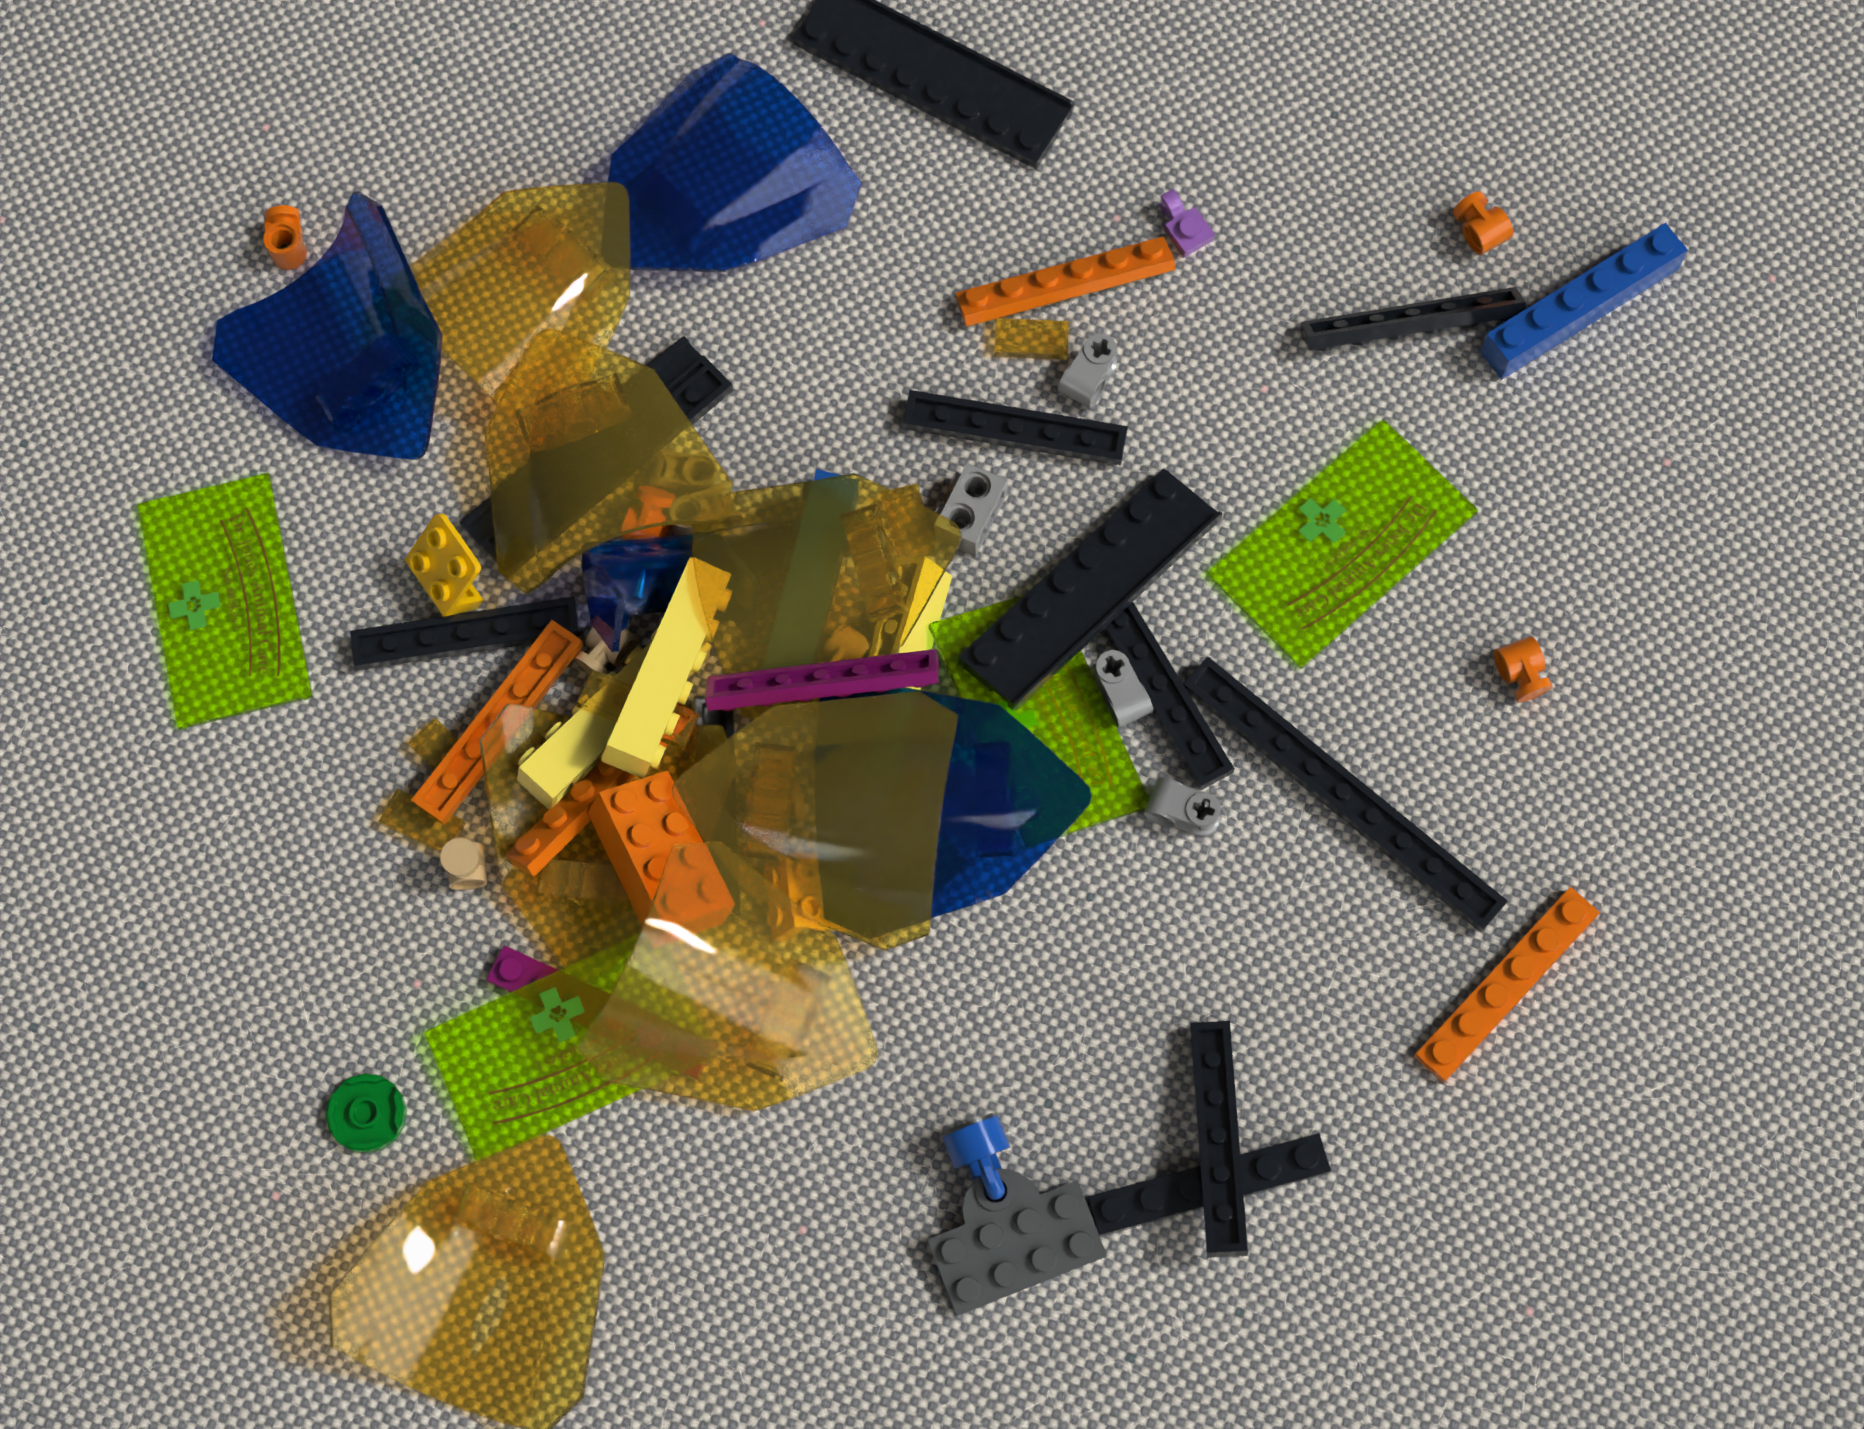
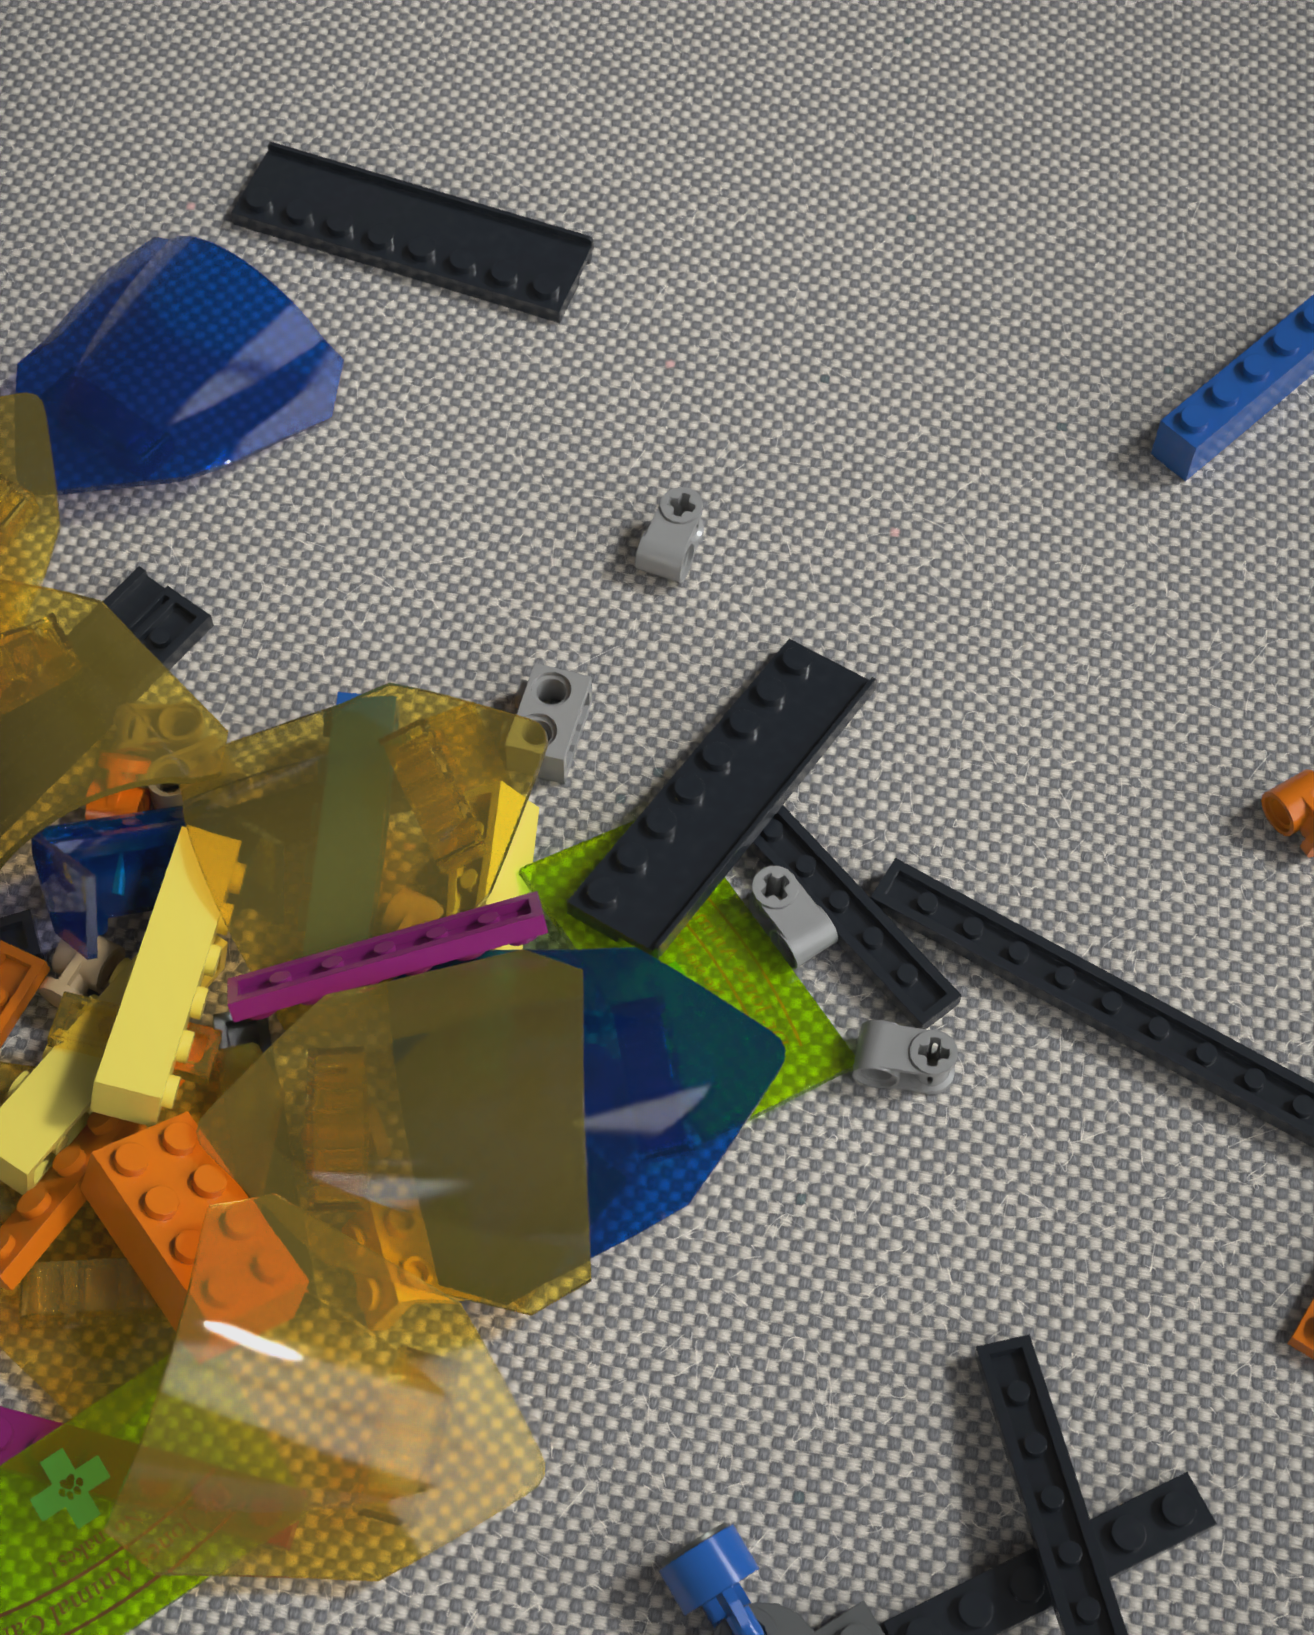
camera: 15 degrees left, 10 degrees down
(1015, 427) = (588, 617): black plate -> none
(1031, 338) = (590, 512): clear yellow tile -> none
(1065, 281) = (618, 439): orange plate -> none
(1186, 228) = (757, 362): medium lavender plate -> none
(1342, 543) = (1033, 700): clear neon green piece -> none
(1413, 318) = (1074, 420): black plate -> none
(1483, 227) = (1120, 310): orange piece -> none

